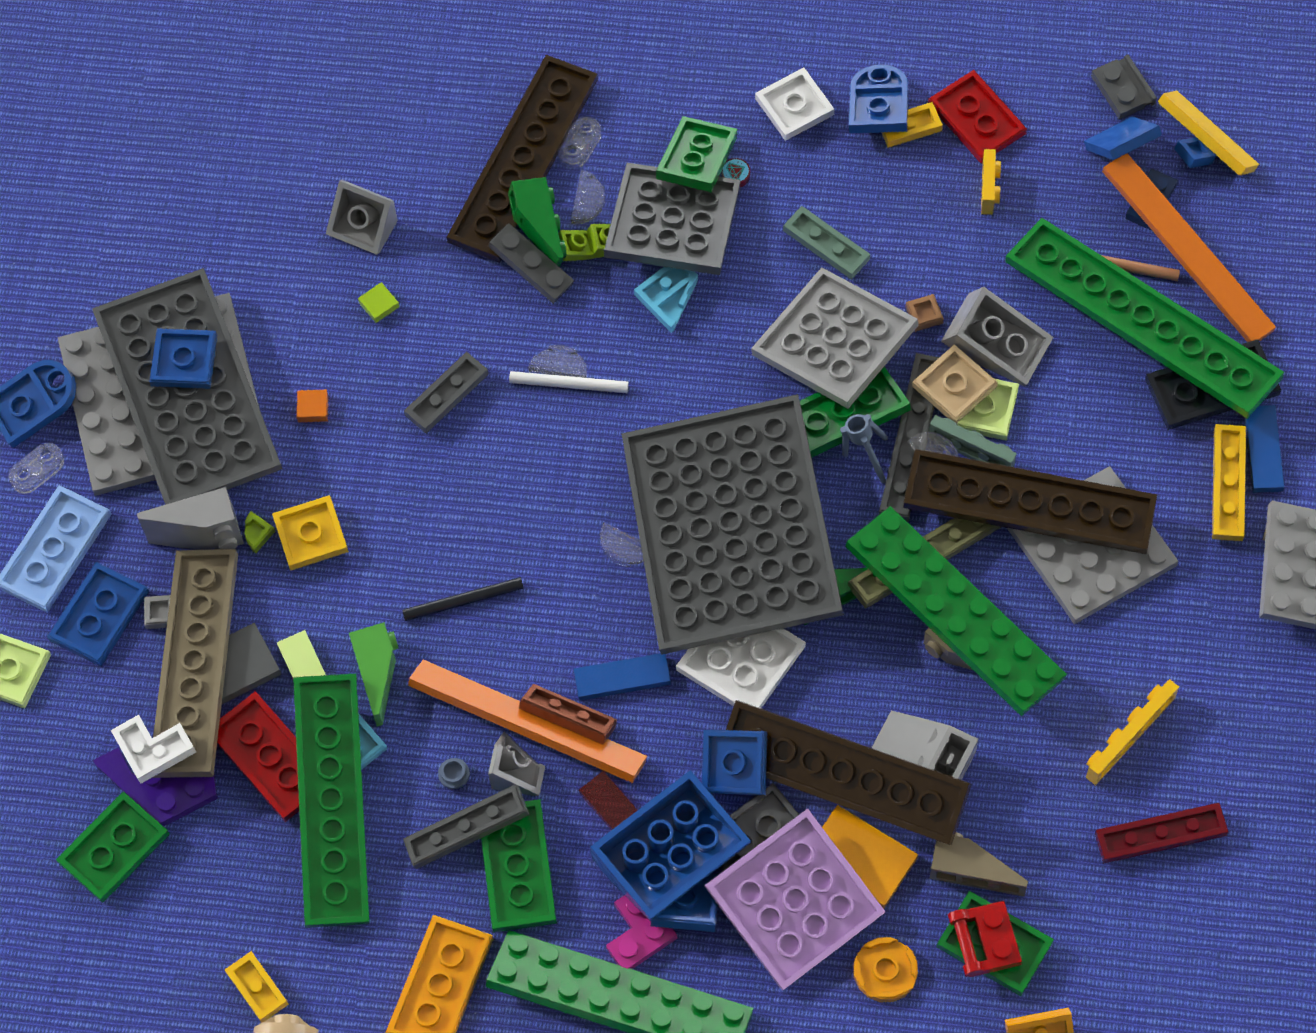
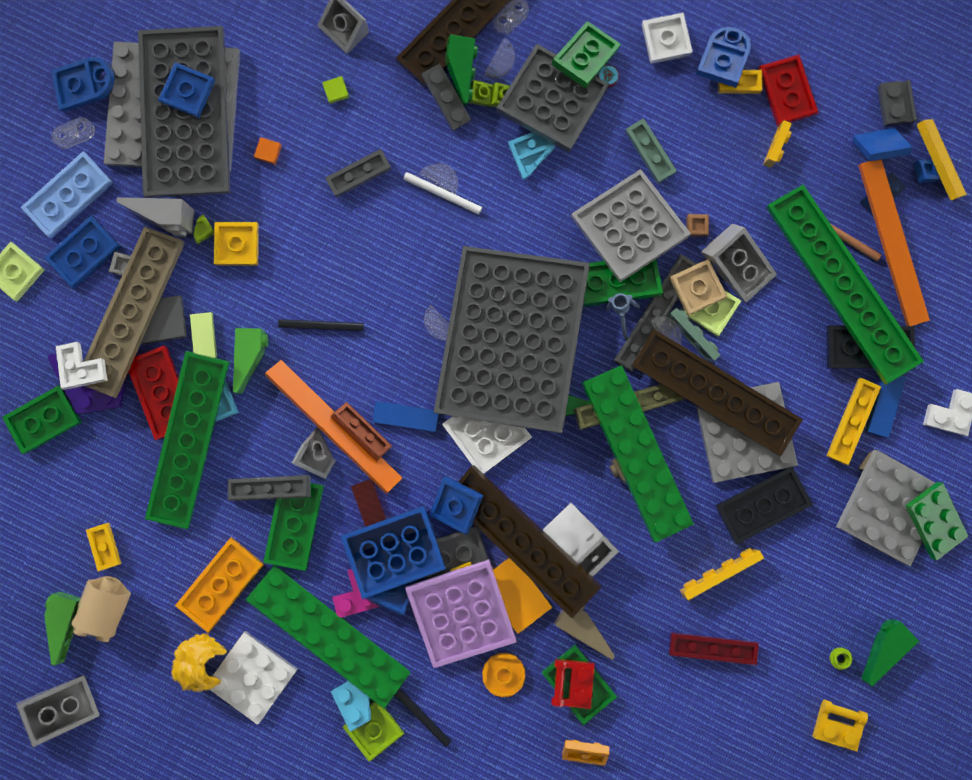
camera: 15 degrees right, 20 degrees up
(453, 773) = (275, 445): sand blue plate -> none
(1153, 626) = (763, 505): none -> black plate

